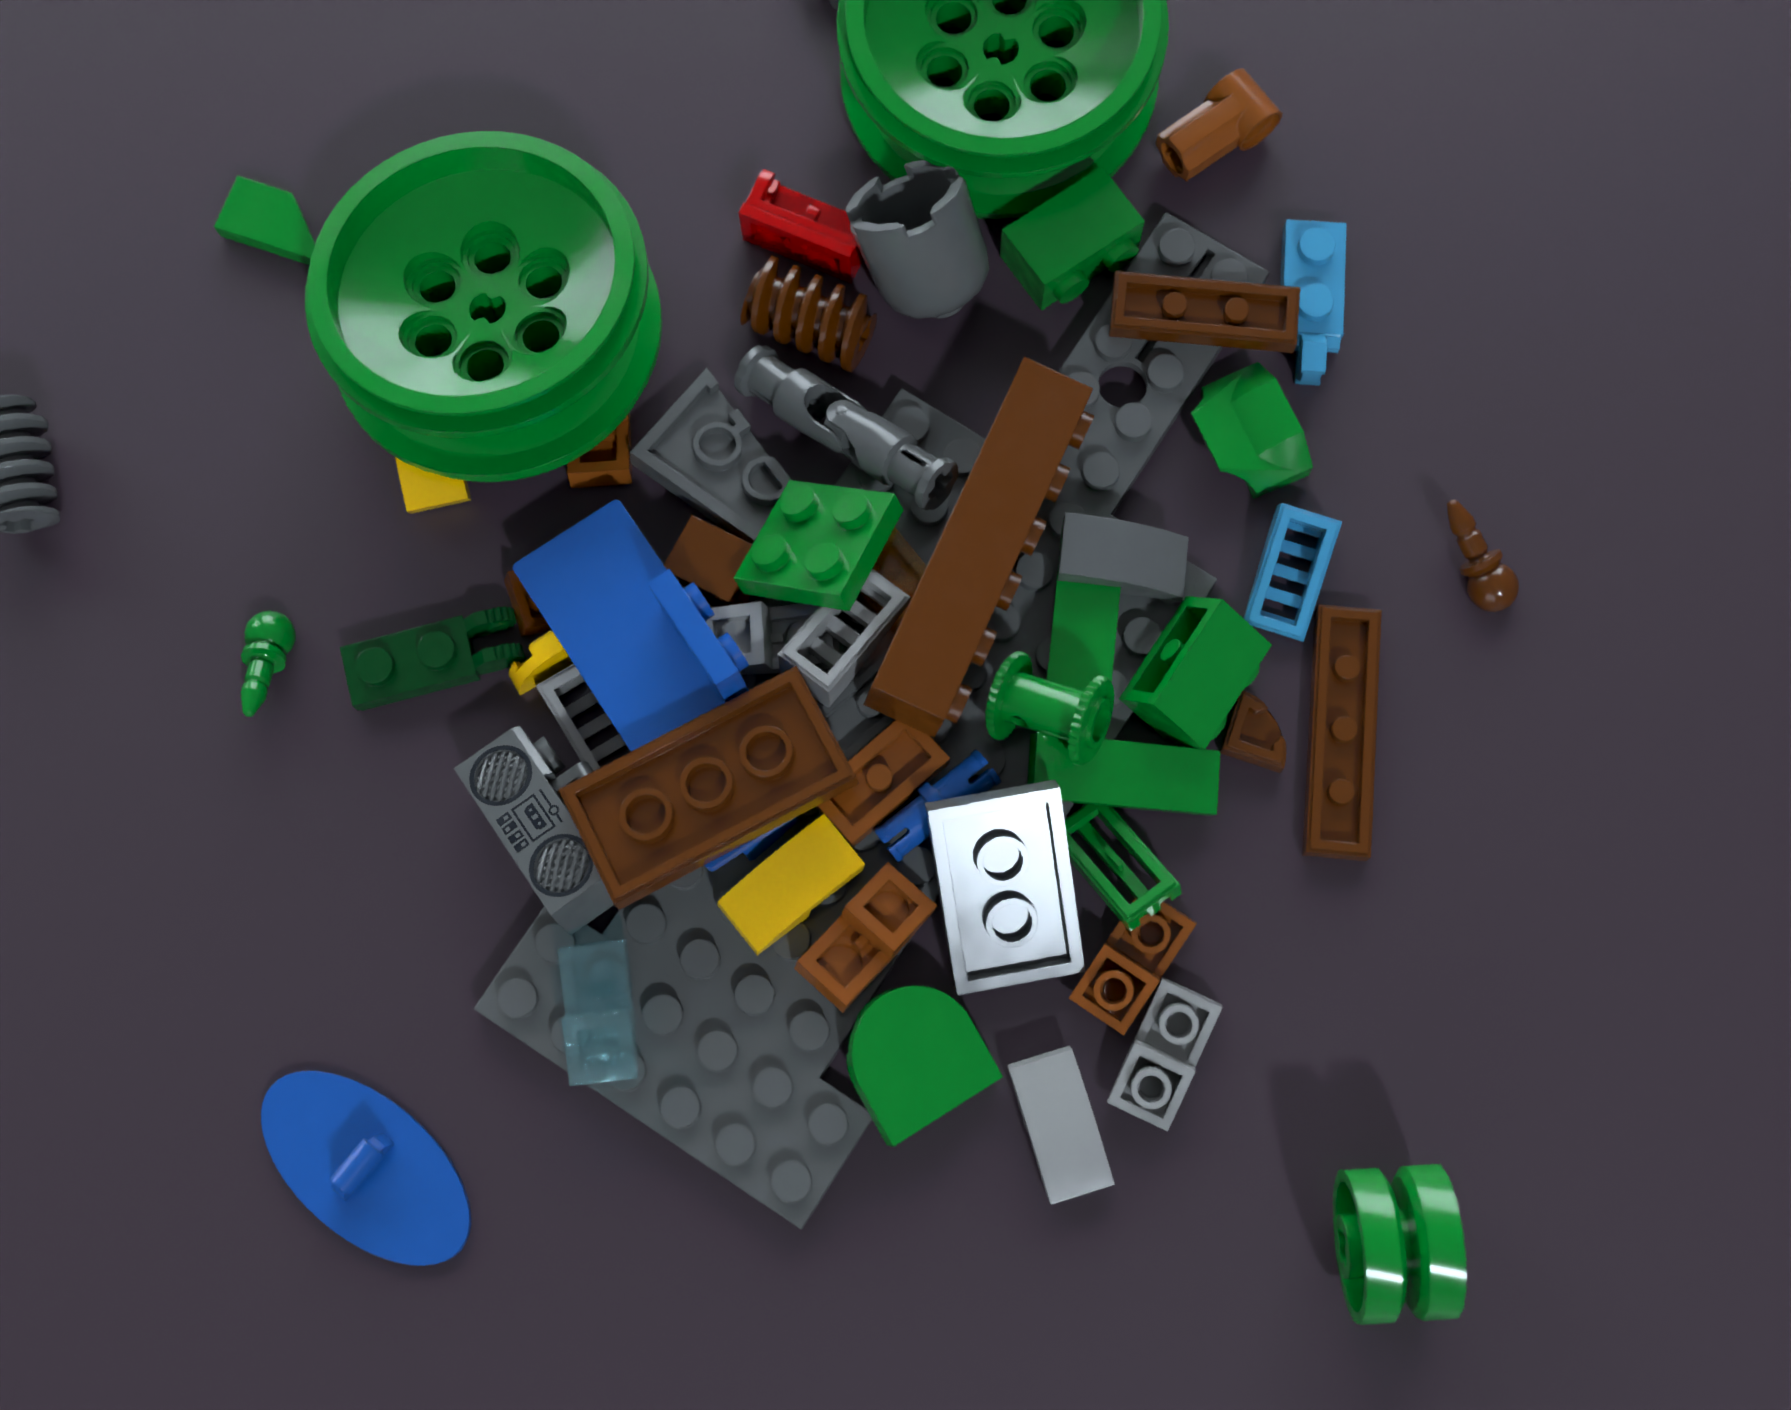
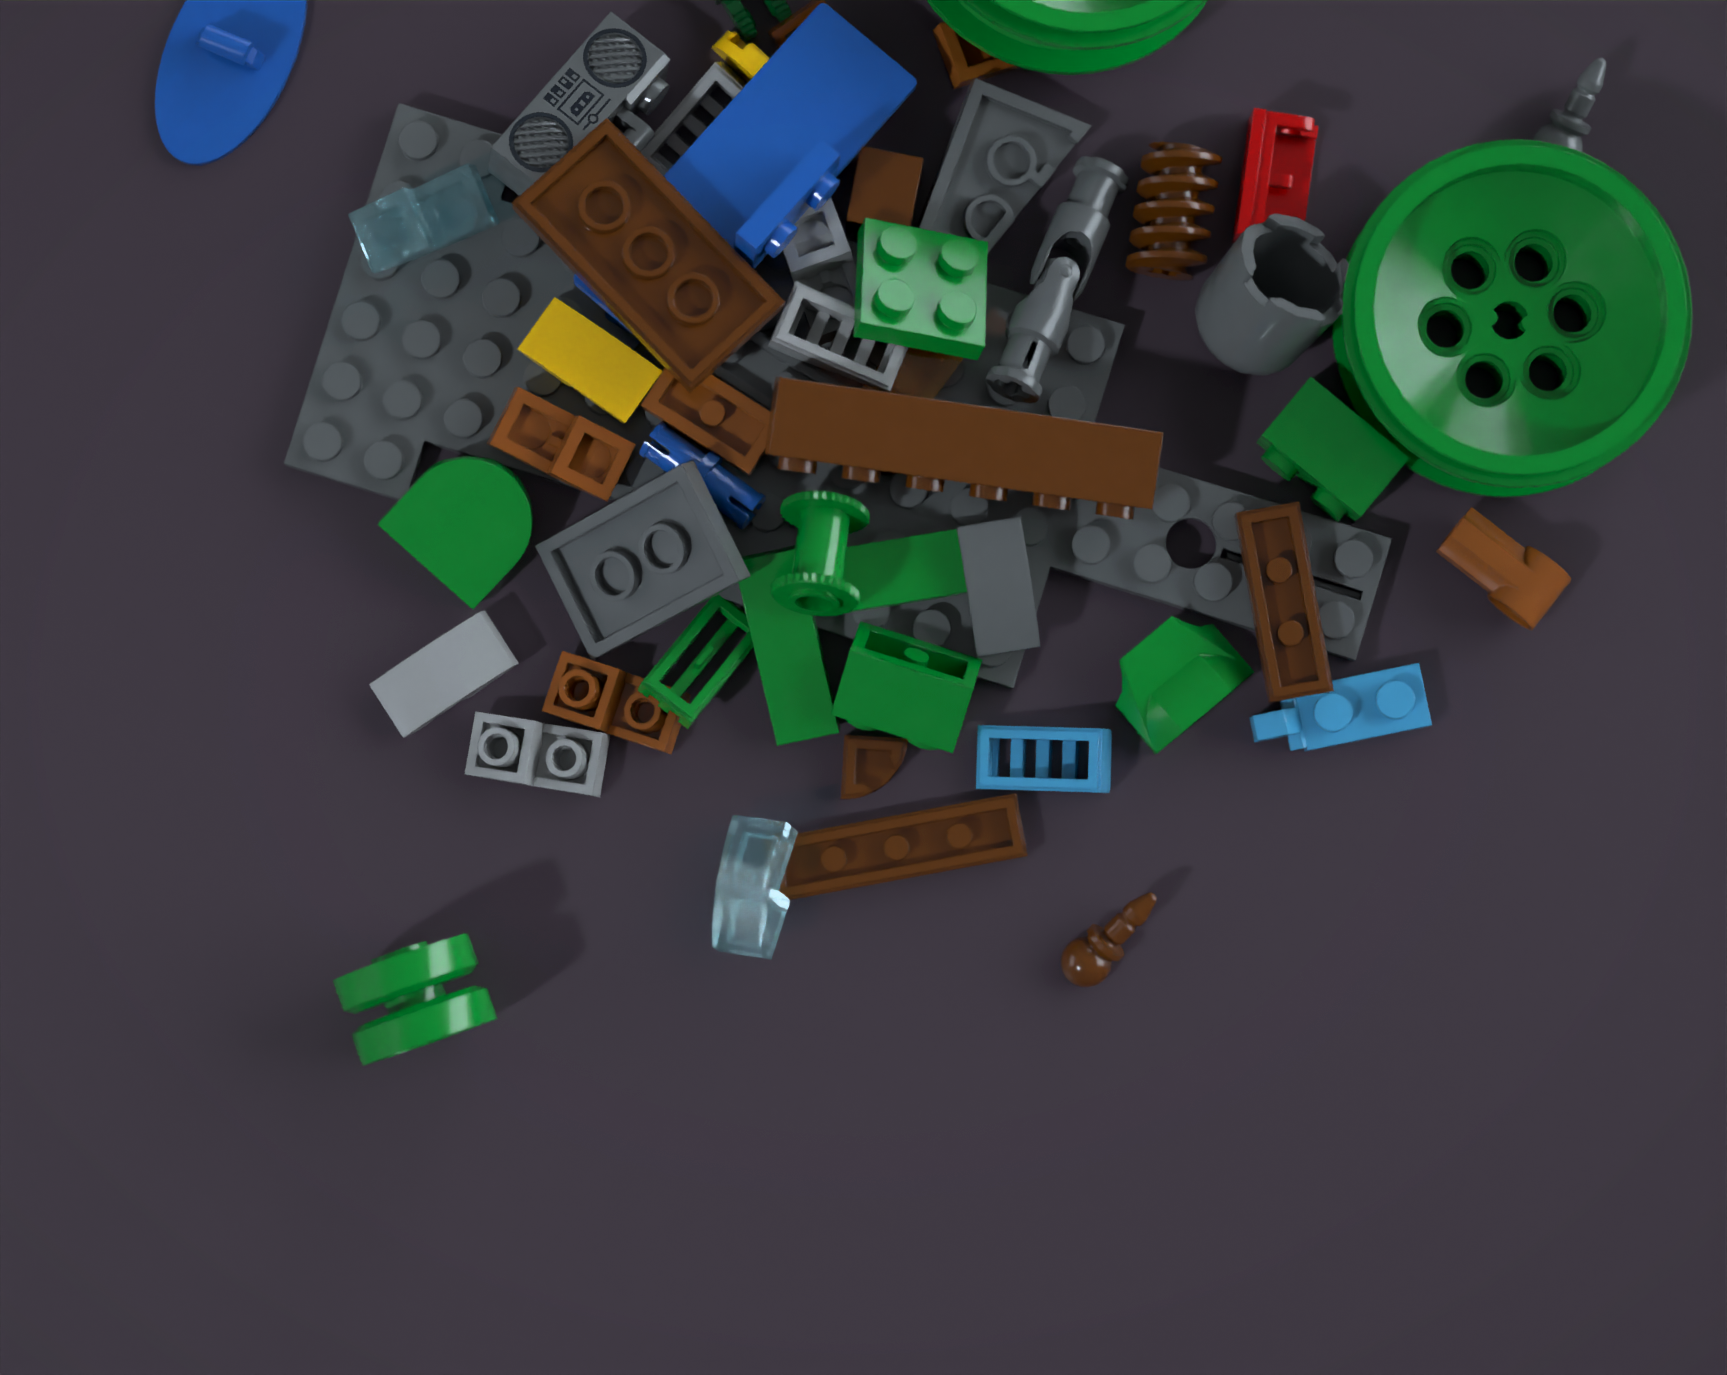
camera: 70 degrees right, 10 degrees up
(1353, 876) = (747, 893): none -> clear light blue slope

